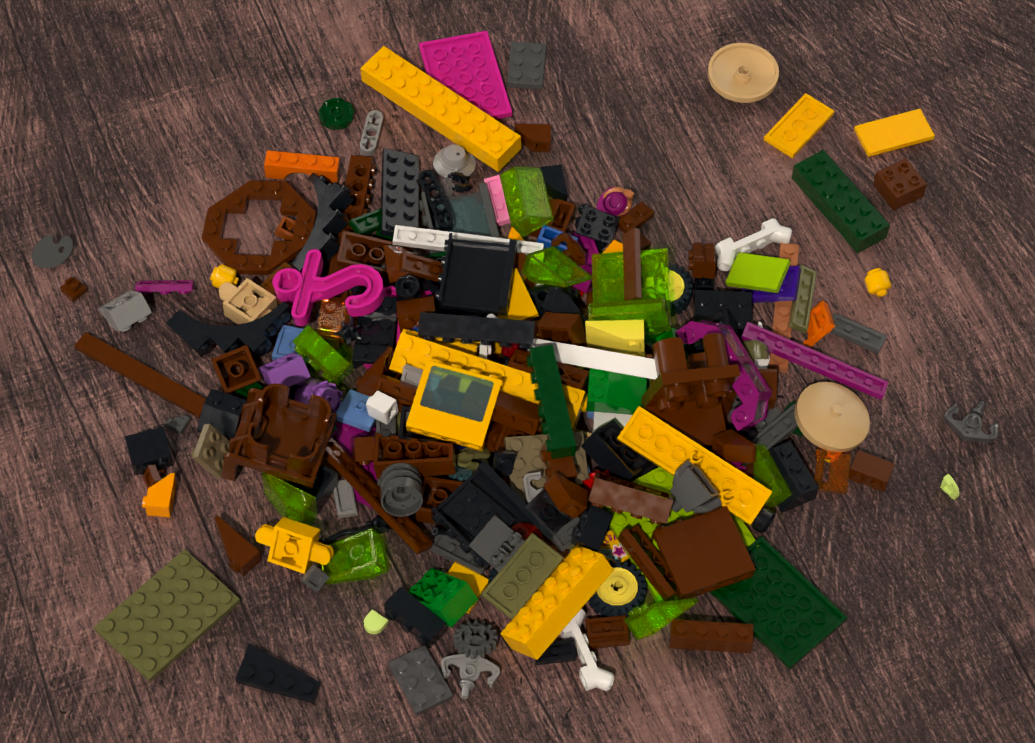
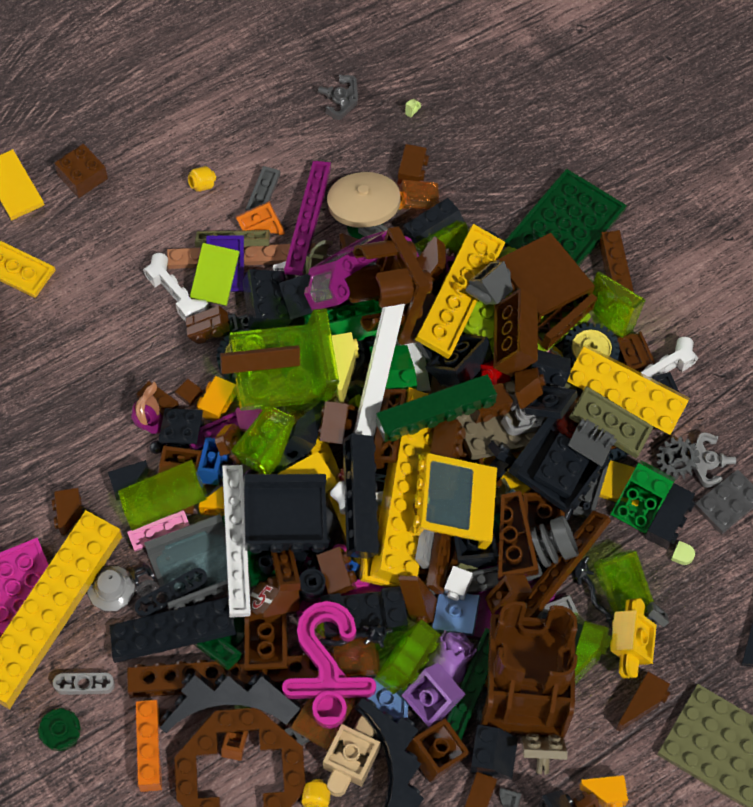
camera: 100 degrees left, 5 degrees up
(840, 201) = (109, 218): dark green brick -> none

